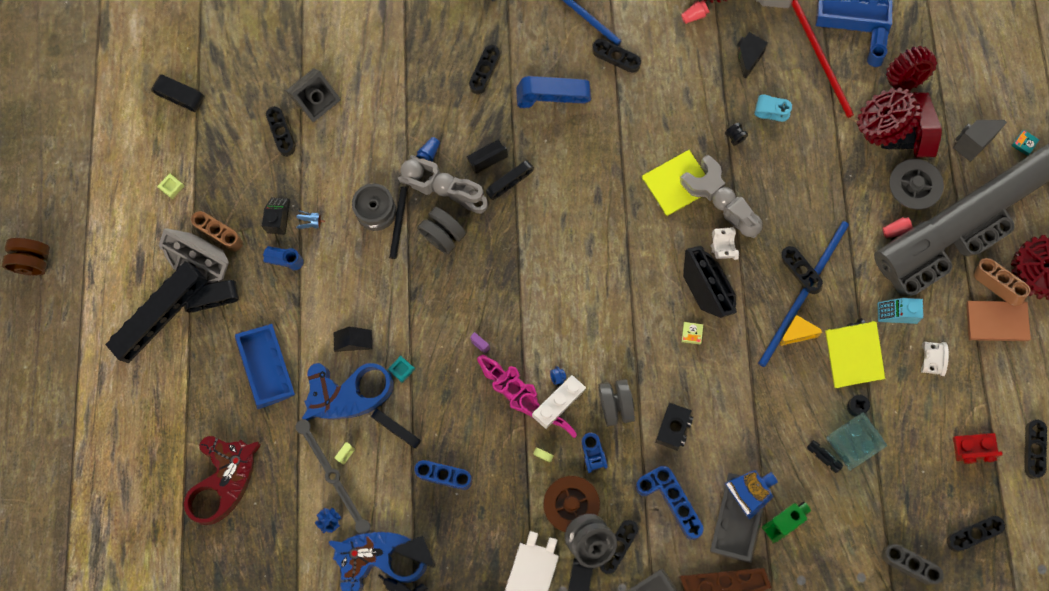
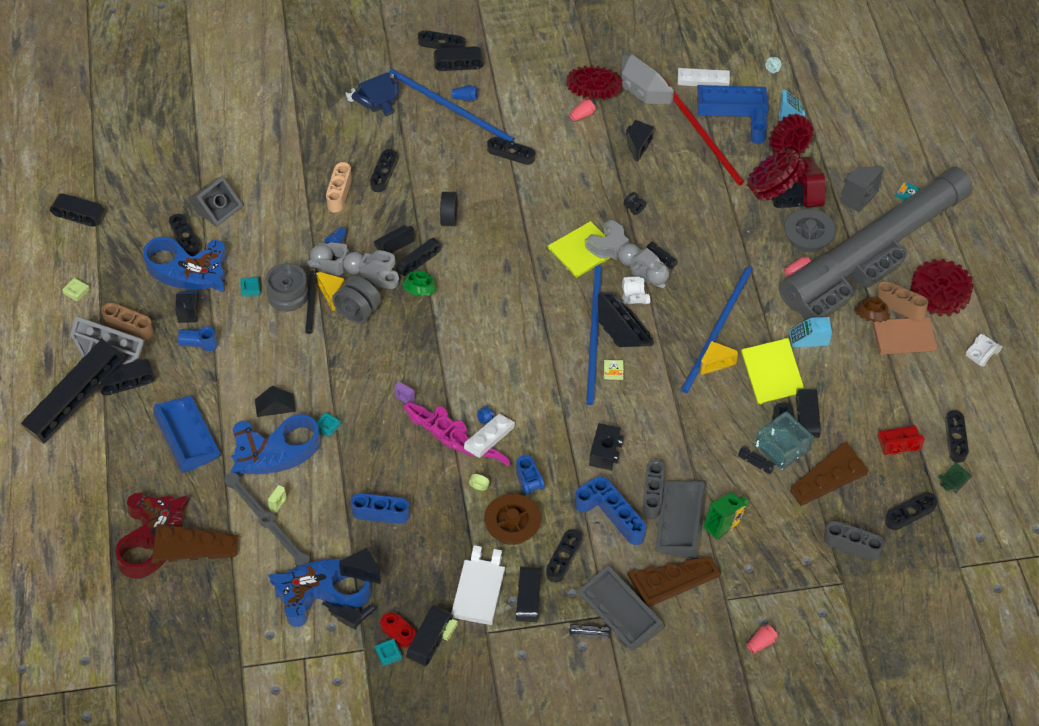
camera: 15 degrees left, 20 degrees down
(252, 499) = (186, 543): none -> reddish brown wing
(286, 179) = (185, 271): none -> blue animal
(315, 220) = (223, 305): flat silver piece -> none
(328, 520) = (265, 557): blue gear -> none
(339, 198) = (250, 286): none -> teal tile
(395, 428) = (327, 473): black beam -> none
(419, 208) = (329, 285): none -> yellow slope
(437, 79) = (338, 187): none -> light nougat beam
(506, 213) = (419, 283): none -> green piece
(544, 126) = (448, 209): none -> black tyre
(552, 90) = (451, 178): blue beam -> none
(590, 540) = (535, 544): dark grey wheel -> none
(618, 402) = (546, 427): dark grey wheel -> none
(676, 289) = (593, 337): none -> blue piece
(722, 474) = (653, 497): none -> dark grey beam
(752, 491) = (688, 488): torso -> none
(757, 198) = (662, 255): none -> black axle
(770, 108) = (665, 180): medium azure piece -> none
(802, 278) = (715, 314): black beam -> none
(885, 406) = (808, 410): none -> black beam
(899, 480) = (832, 473): none -> reddish brown wing
(914, 32) = (789, 105): none -> medium azure slope
(935, 358) = (850, 370): white piece -> none
(968, 289) = (872, 309): none -> reddish brown piece
(1026, 502) = (954, 478): none -> clear green bracket

